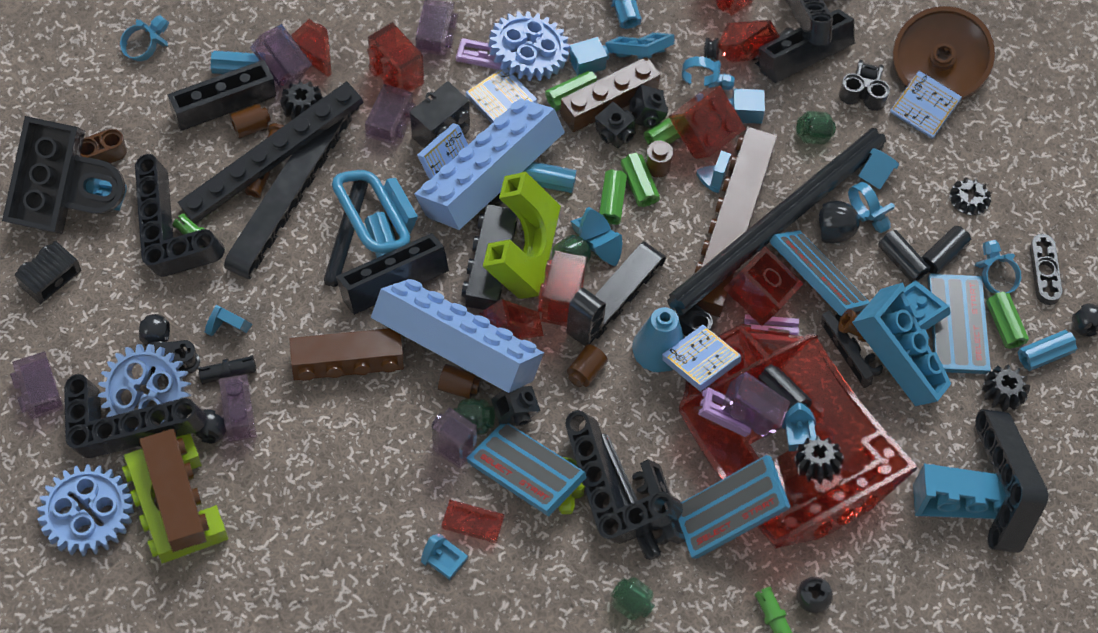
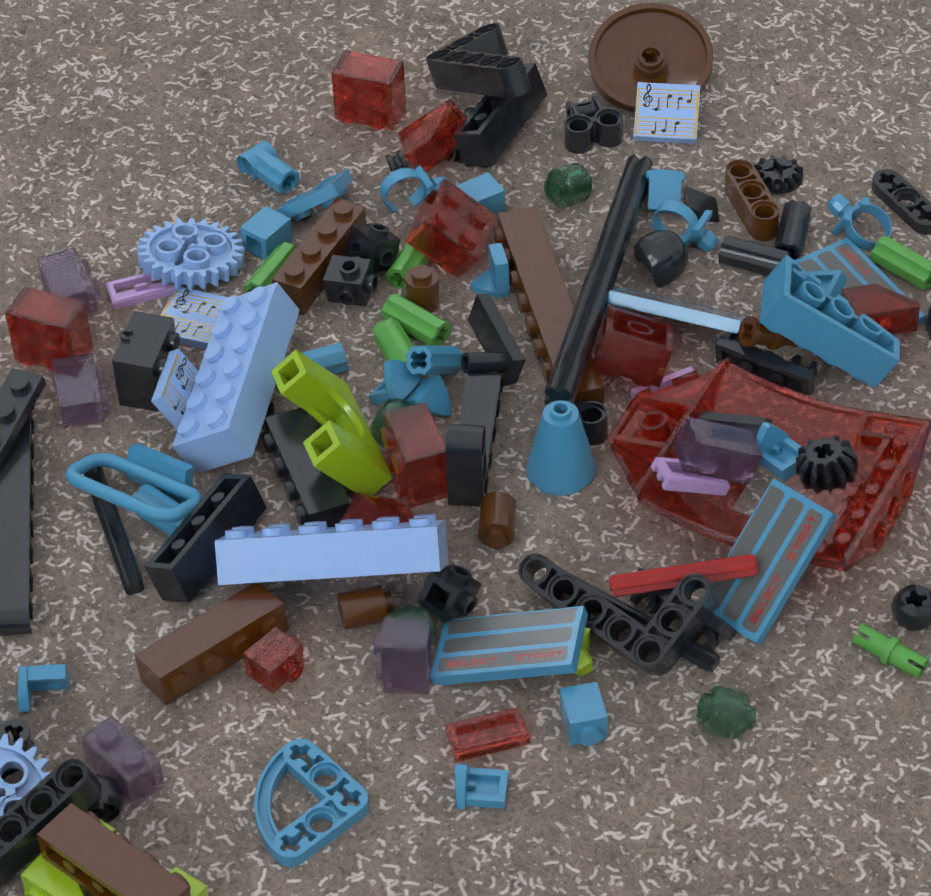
camera: 25 degrees left, 15 degrees down
(227, 369) = (70, 737): black pin -> none
(341, 515) = (329, 808): none -> dark azure beam
(378, 389) = (275, 660): none -> clear red brick
(541, 545) = (584, 714): none -> dark azure brick
(625, 221) = (434, 360): none -> dark azure axle
(669, 485) = (670, 576): none -> red axle
(677, 242) = (500, 348): none -> black piece
(701, 357) = (623, 439): light blue tile -> none
(896, 193) = (699, 202): none -> black slope
(938, 200) = (751, 200): none -> reddish brown beam
(955, 350) = (884, 306): none -> clear red slope

